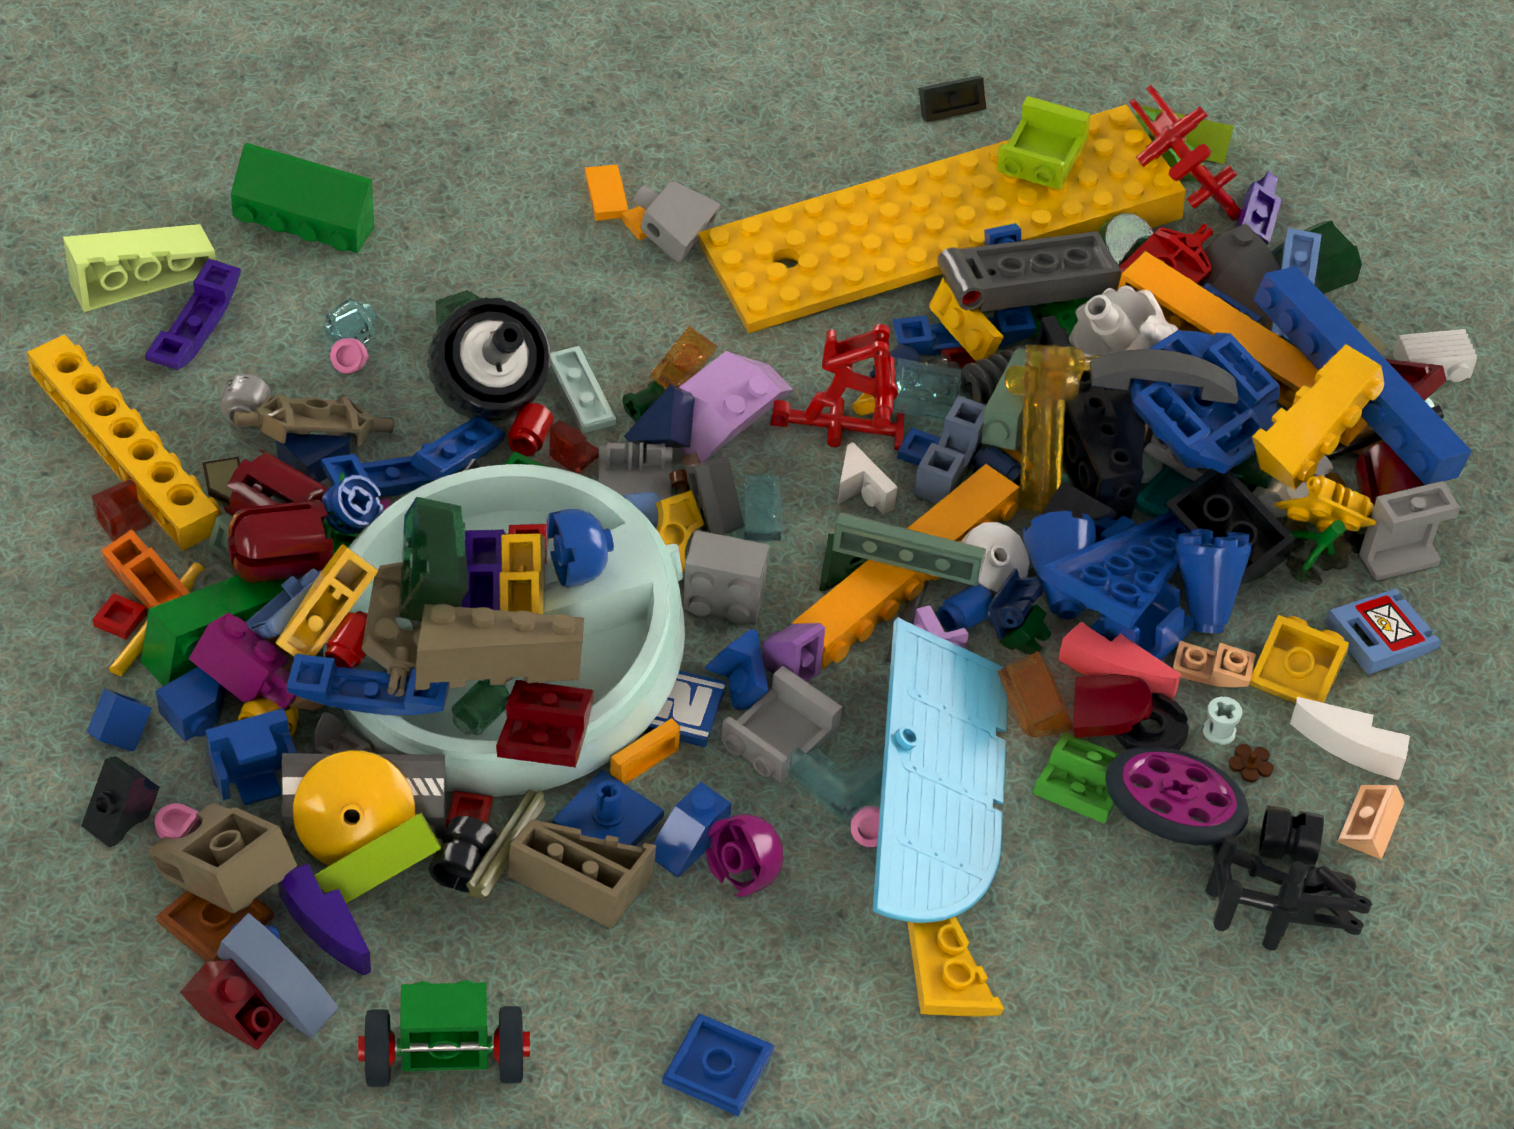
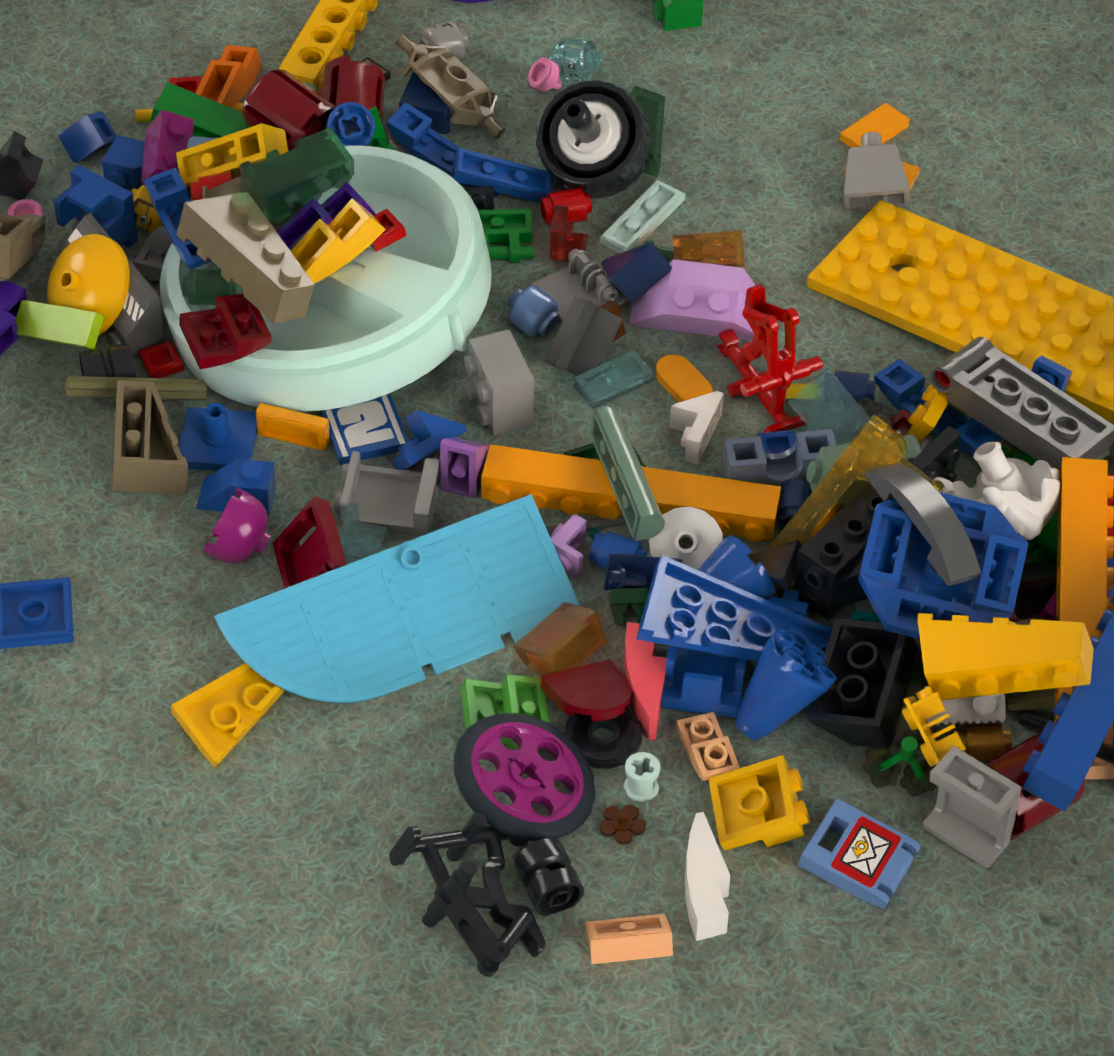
camera: 60 degrees right, 0 degrees up
(119, 510) = (276, 36): clear red panel -> none
(579, 546) = (382, 245): blue cylinder -> none
(678, 520) = (534, 330): yellow tile -> none
(798, 465) = (681, 378): none -> light orange tile
(833, 816) = (320, 551): none -> dark red container

